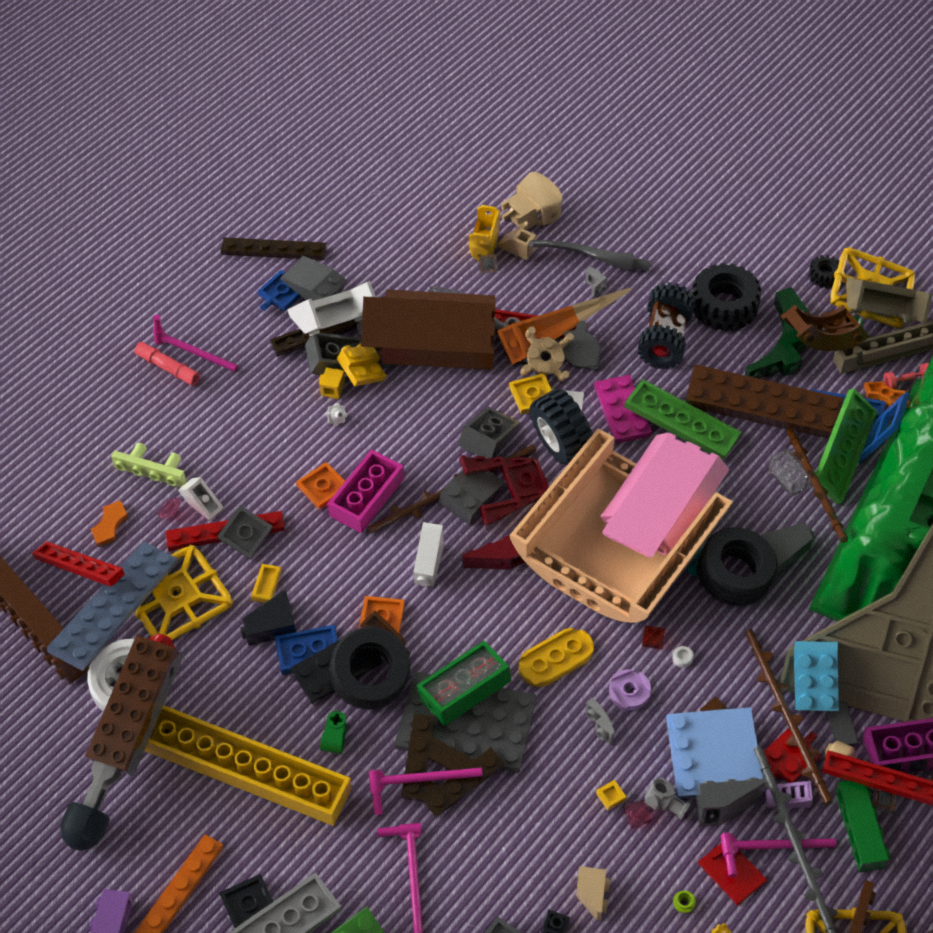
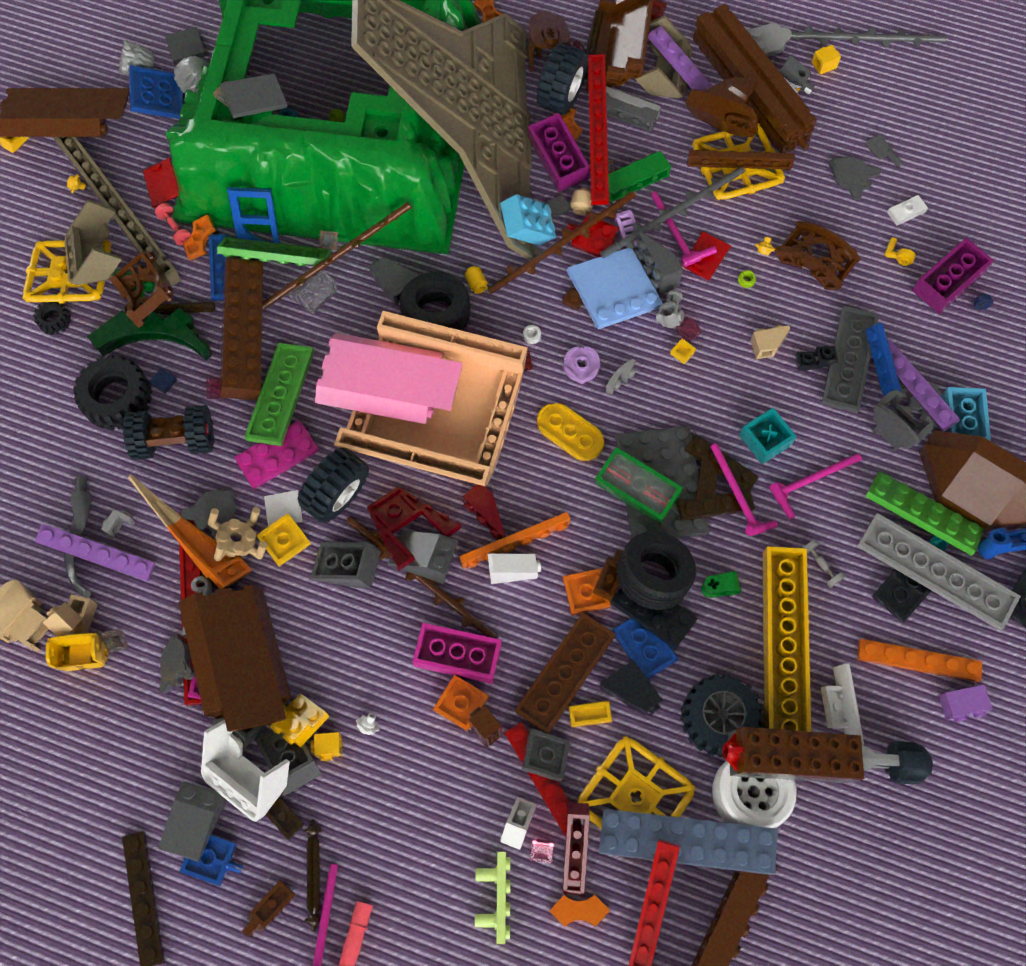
camera: 110 degrees left, 15 degrees up
(159, 528) = (576, 848): none -> dark red slope
(167, 792) = (841, 703): none -> white bracket
(211, 681) = (716, 708): none -> black wheel
(224, 319) = (268, 908): none -> reddish brown hinge
(235, 352) = (313, 875): none -> dark brown wheel
(288, 484) = (485, 726): none -> reddish brown brick
(312, 574) = (565, 673): none -> reddish brown plate
(313, 839) = (823, 564): none -> light grey wheel
(455, 577) = (522, 538): none -> orange plate
(475, 836) = (767, 435): none -> teal brick
(513, 223) = (62, 619): none -> tan brick
(571, 262) = (95, 552): none -> medium lavender plate
(730, 340) = (163, 381): none -> dark blue tile
(765, 620) = (476, 279): none -> yellow brick
(807, 368) = (190, 307): none -> dark brown axle
(853, 501) = (328, 240): none -> clear tile

